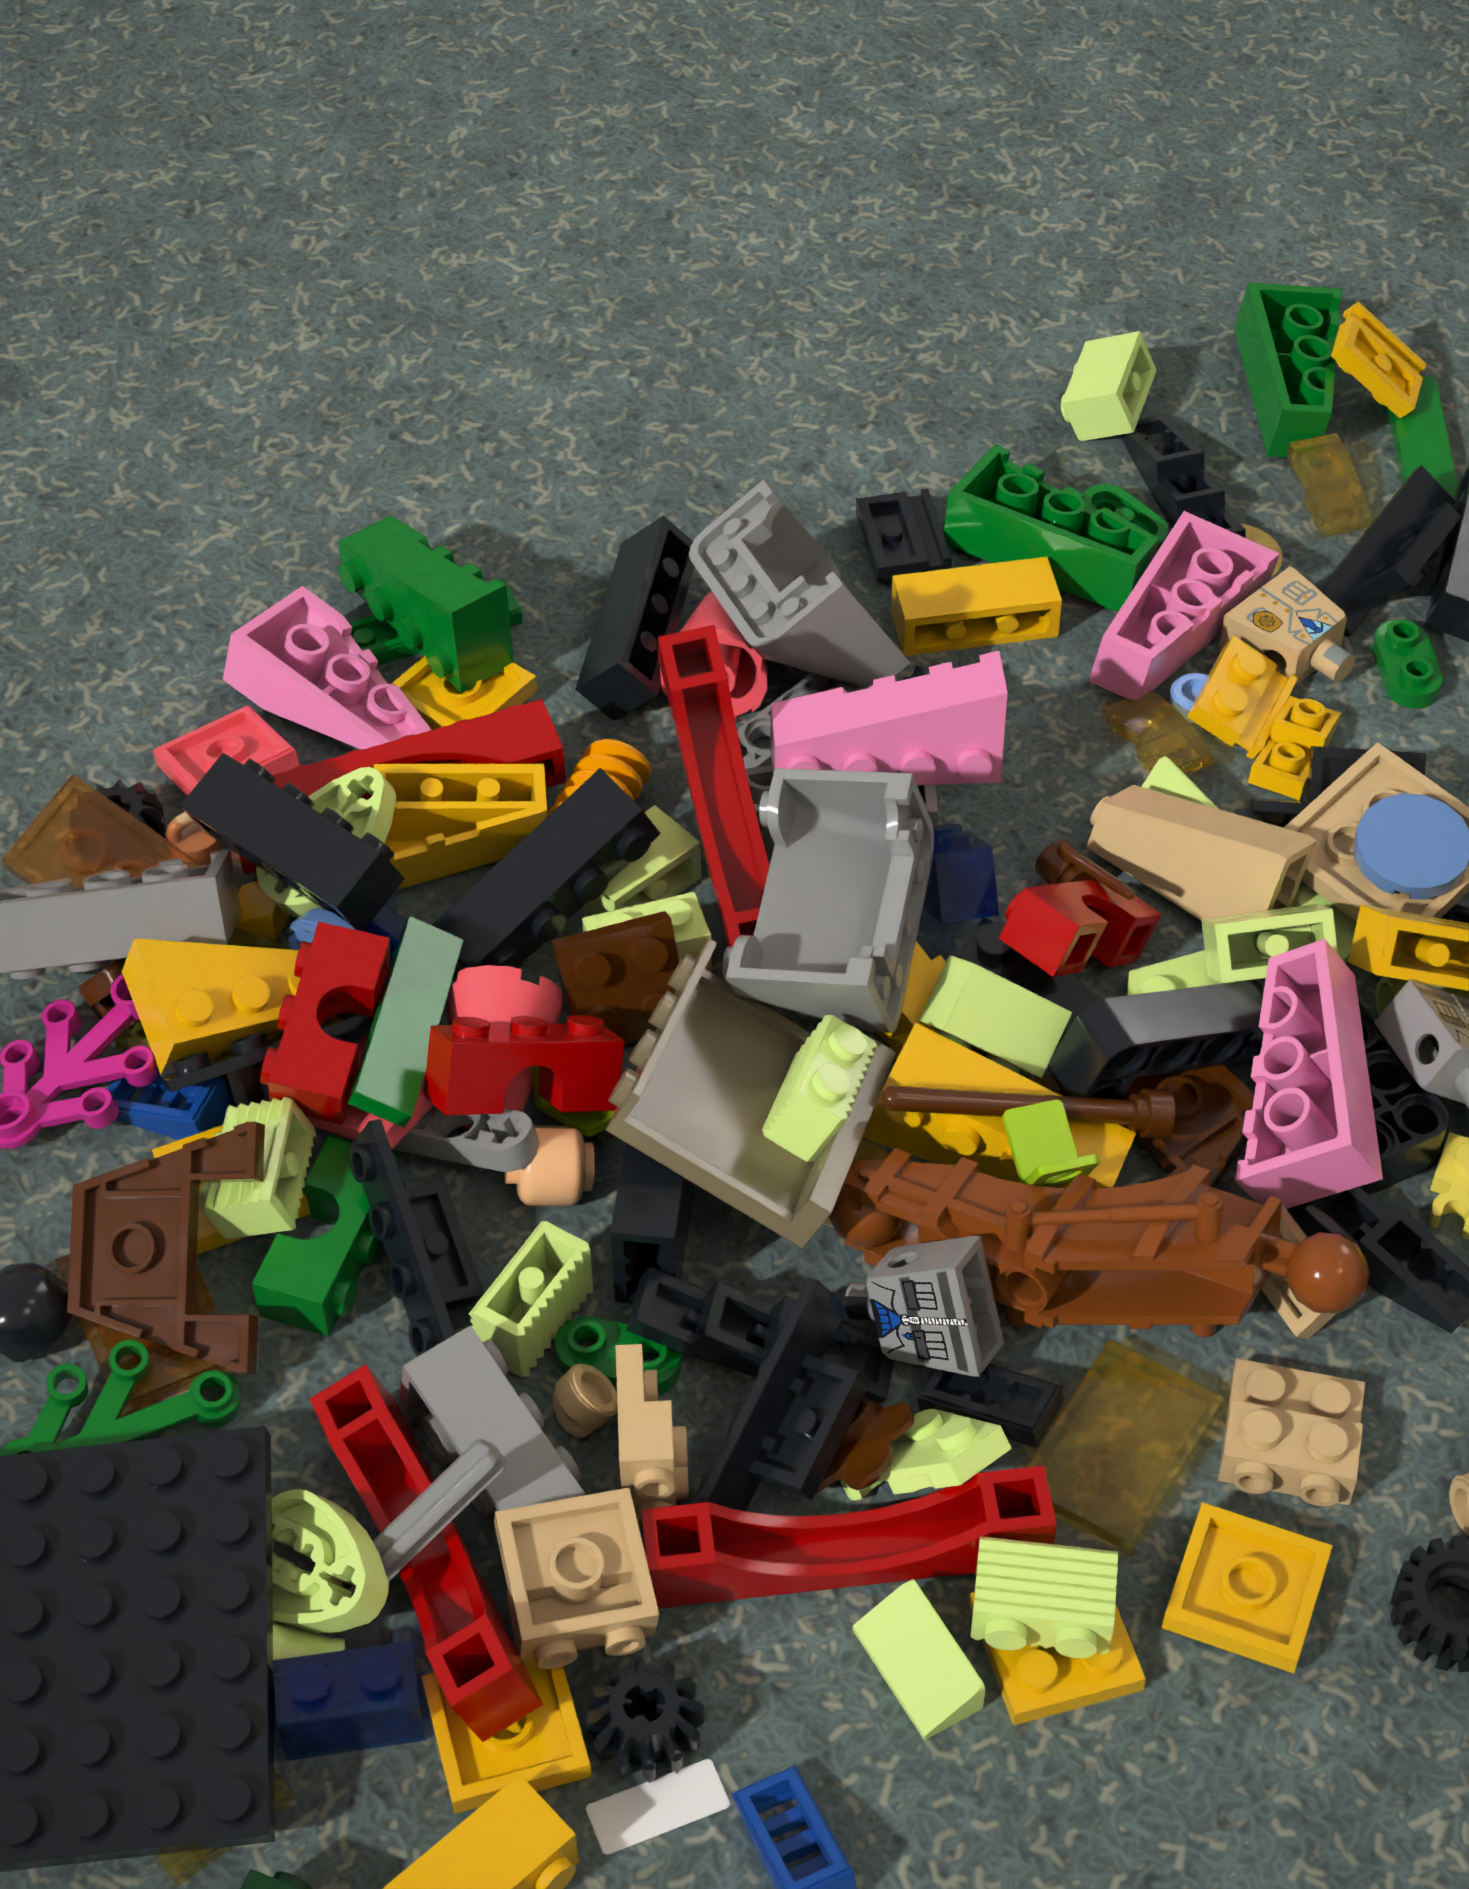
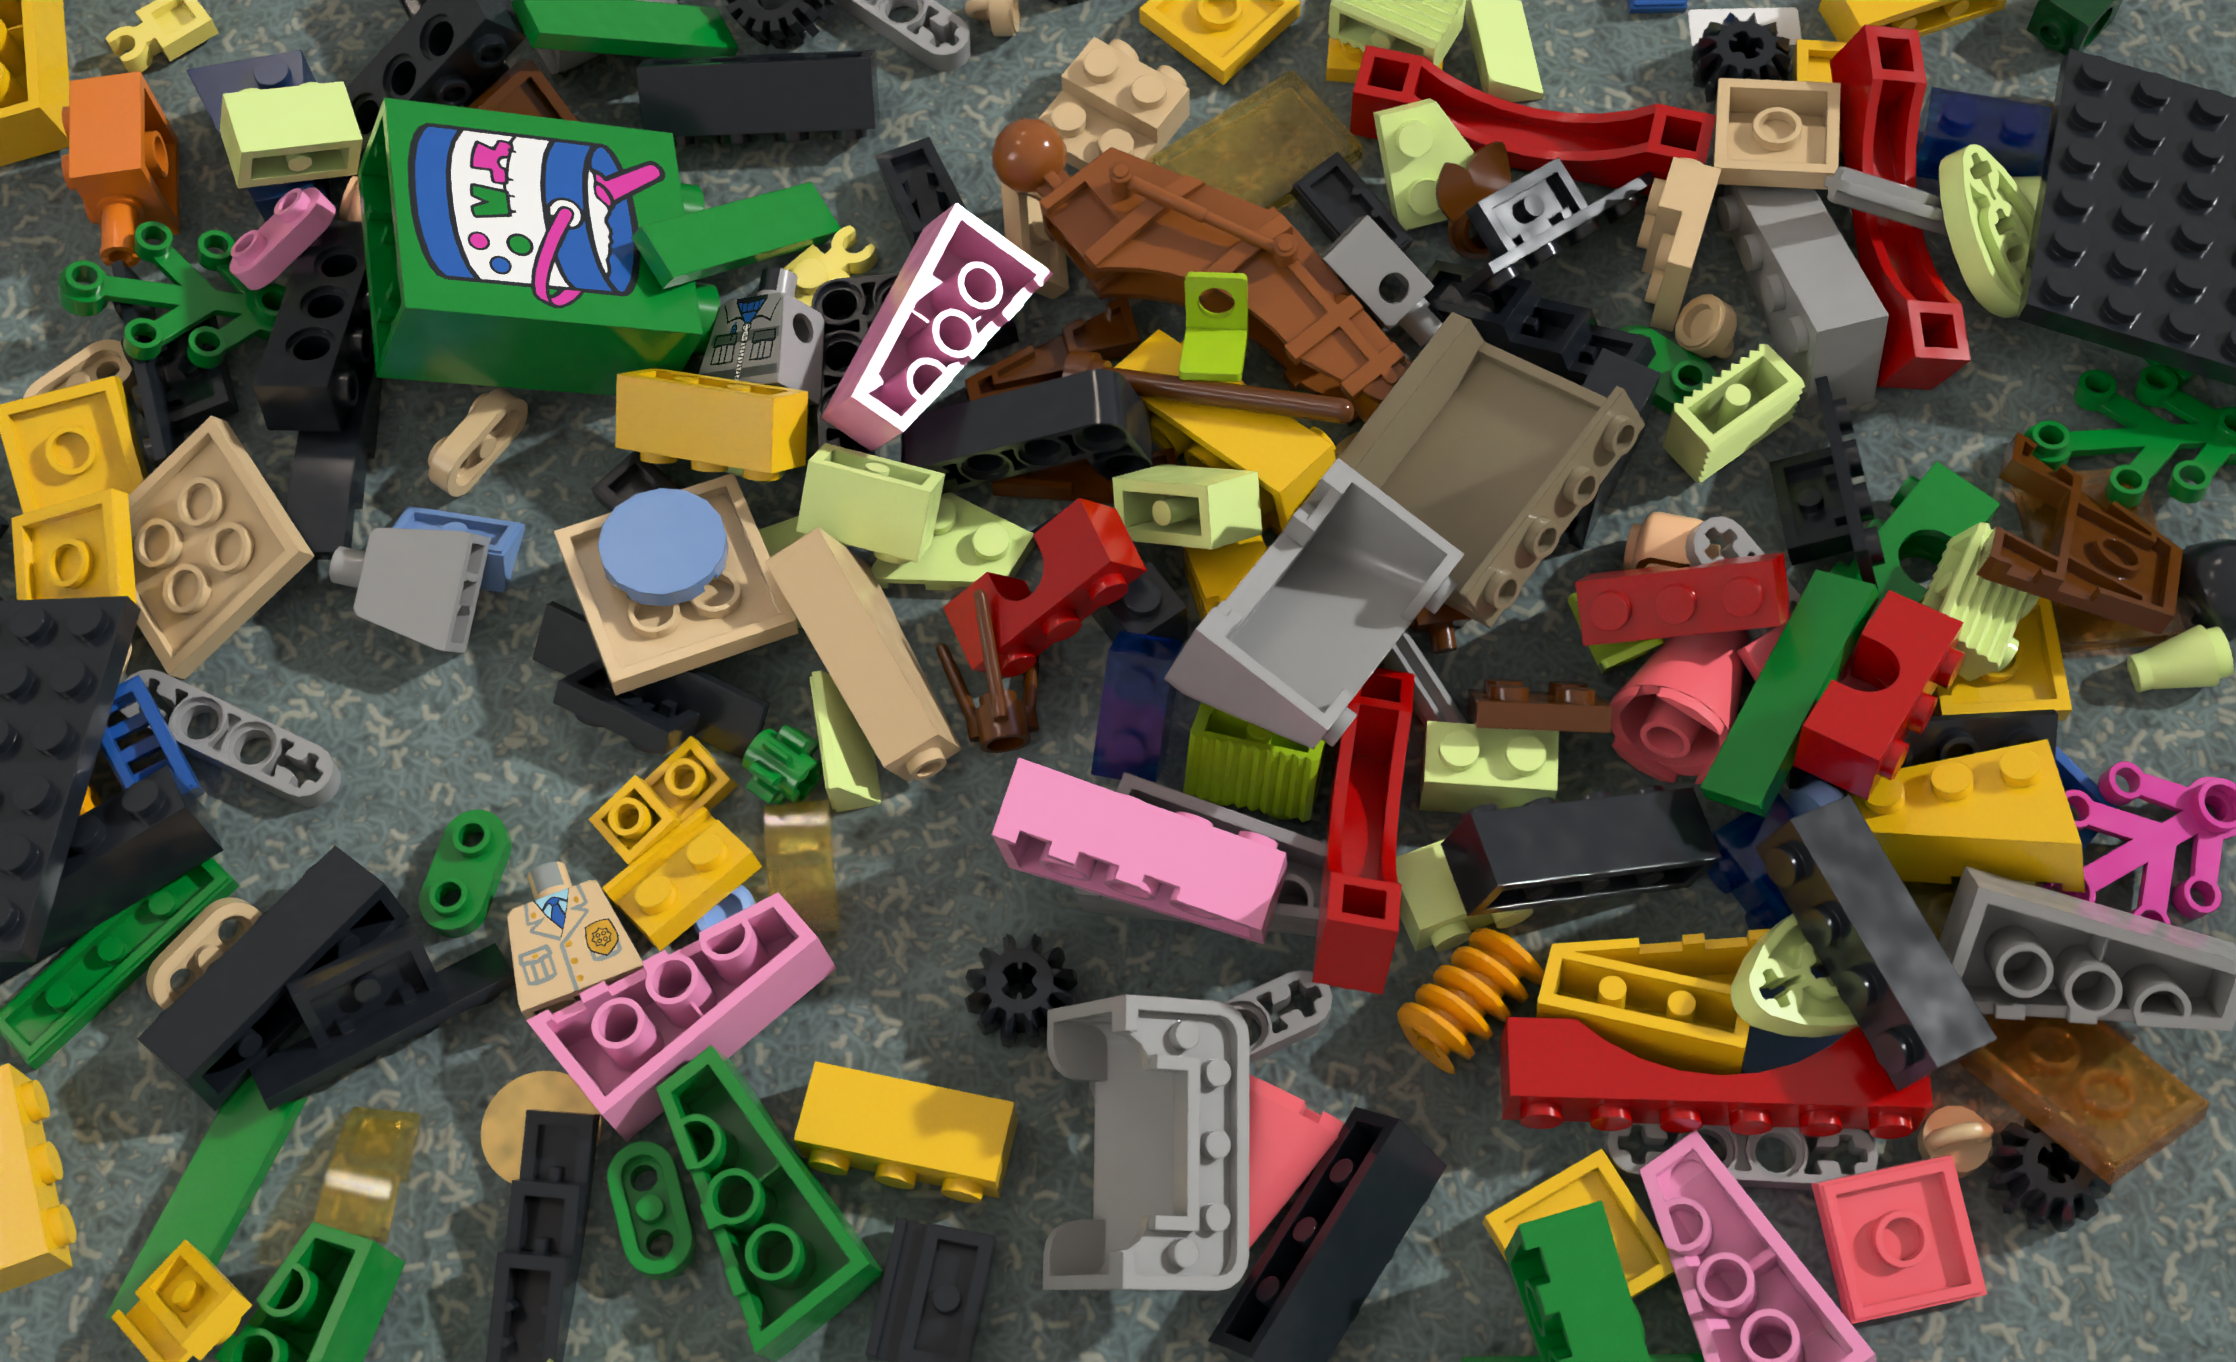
camera: 155 degrees left, 15 degrees up
(41, 1235) = (2184, 661): none -> yellowish green cone
(819, 1088) = (1411, 447): yellowish green brick -> none
(1219, 774) = (782, 765): none -> green gear

